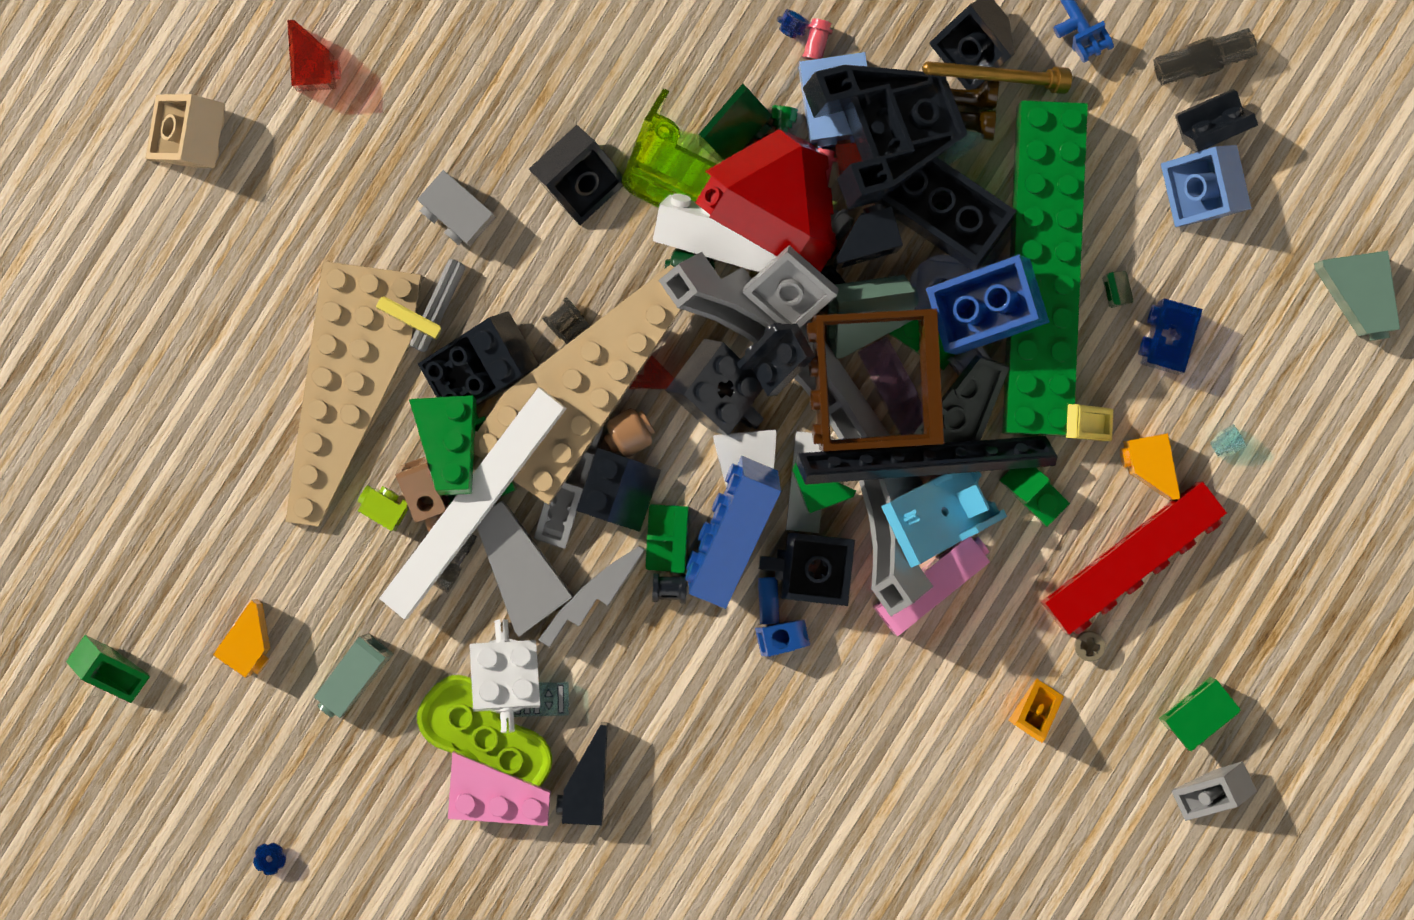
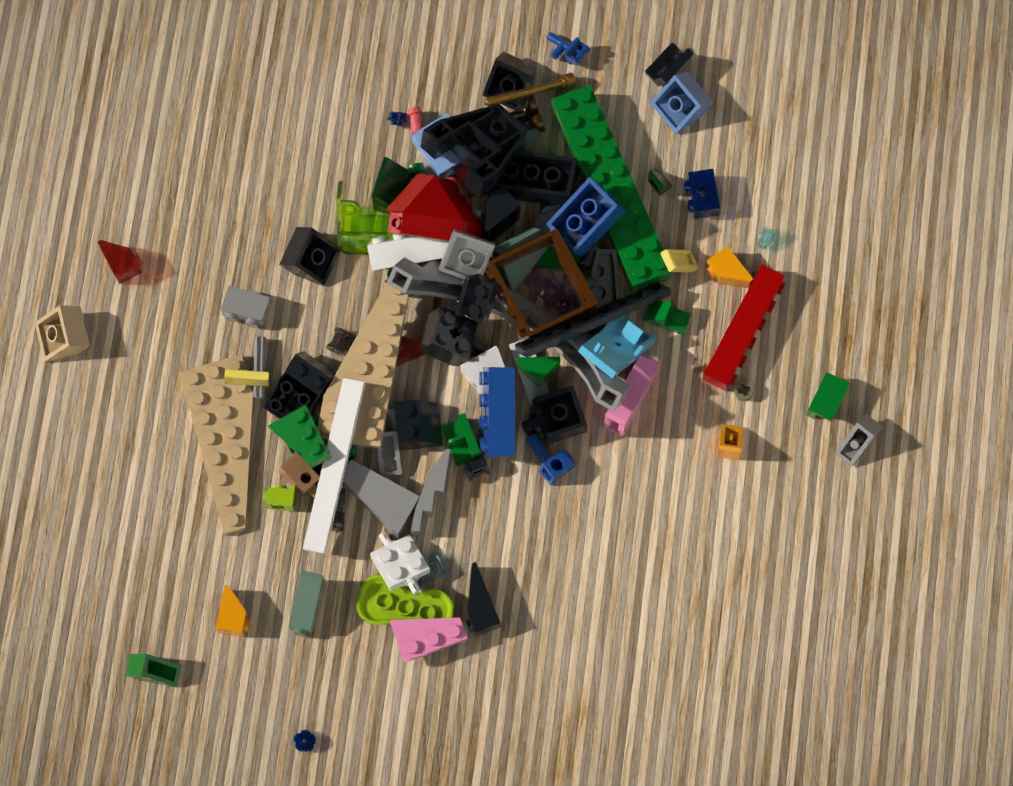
camera: 25 degrees left, 15 degrees down
(629, 432) = (409, 387): medium nougat head -> none
(1205, 57) = (646, 33): clear smoke piece -> none
(1363, 292) = (801, 120): sand green slope -> none

